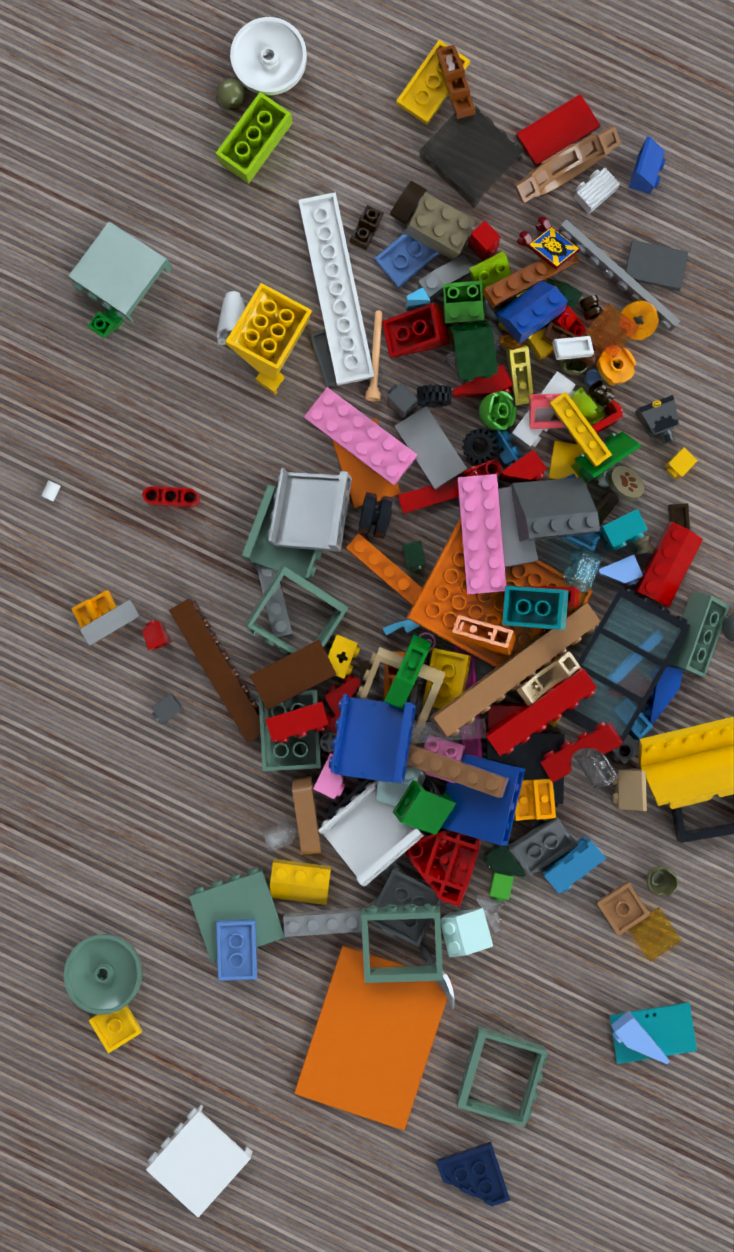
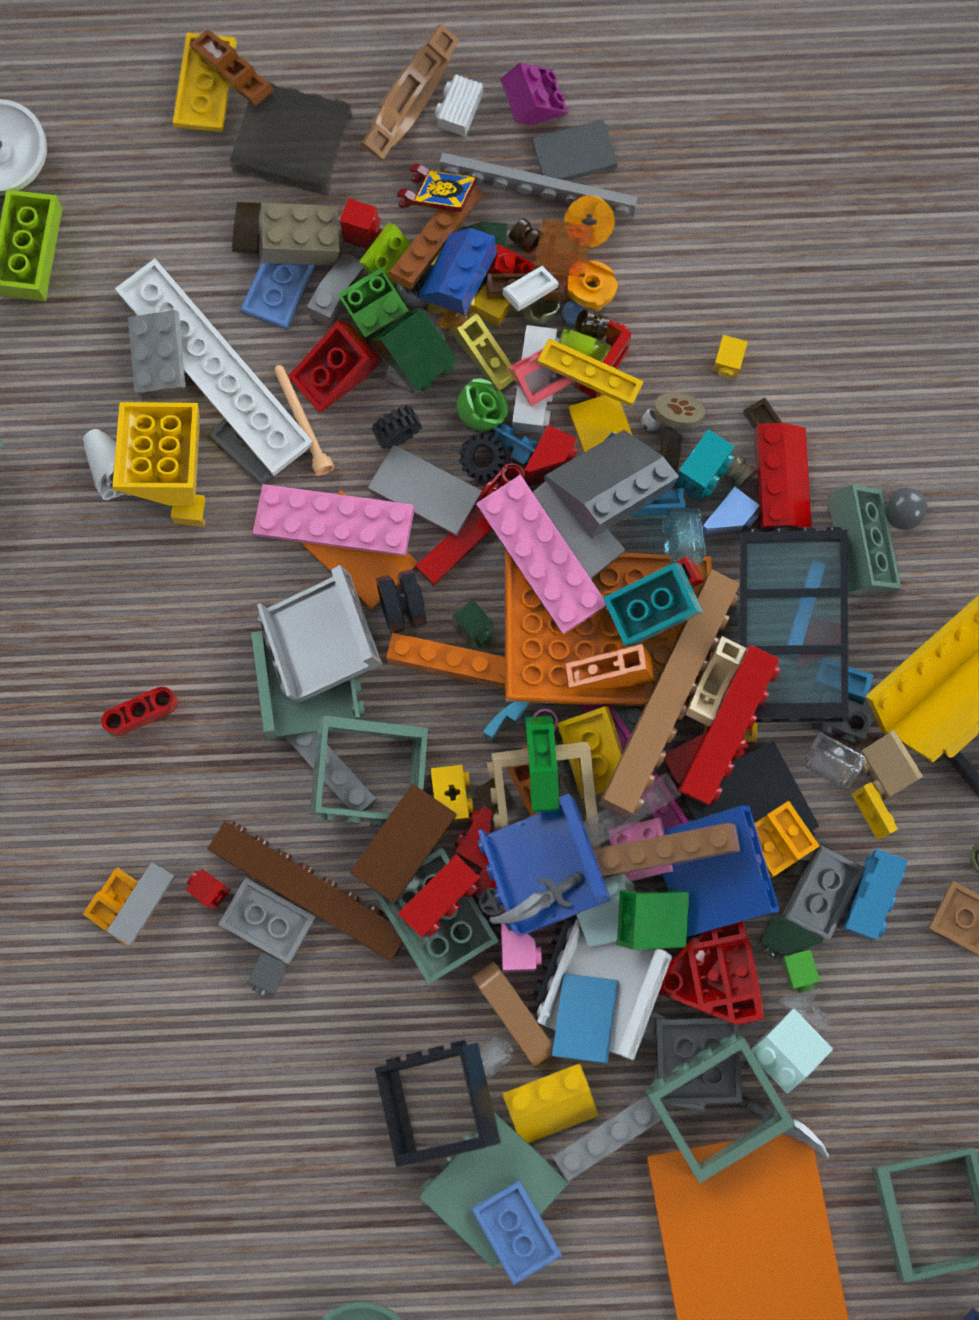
camera: 30 degrees left, 10 degrees down
(183, 674) = (267, 920): none -> light grey plate
(201, 842) = (397, 1113): none -> black window
(303, 259) = (156, 352): none -> light grey plate
(349, 844) = (585, 1018): none -> dark azure tile
(358, 761) = (540, 900): none -> piece
(366, 227) = (212, 279): dark brown slope -> none
(401, 400) = (360, 452): dark grey brick -> none
(417, 299) = (316, 327): medium azure slope -> none
(483, 386) = (447, 387): red slope -> none
(558, 130) = (378, 63): red tile -> none
(602, 739) = (786, 777): red arch -> none
(604, 812) = (874, 811): none -> yellow plate
(619, 446) = (651, 370): green slope -> none
(647, 166) = (502, 46): blue slope -> none
(650, 208) = (533, 94): none -> magenta slope
(659, 418) = (676, 318): dark grey torso -> none
(663, 693) = (862, 629): blue slope -> none

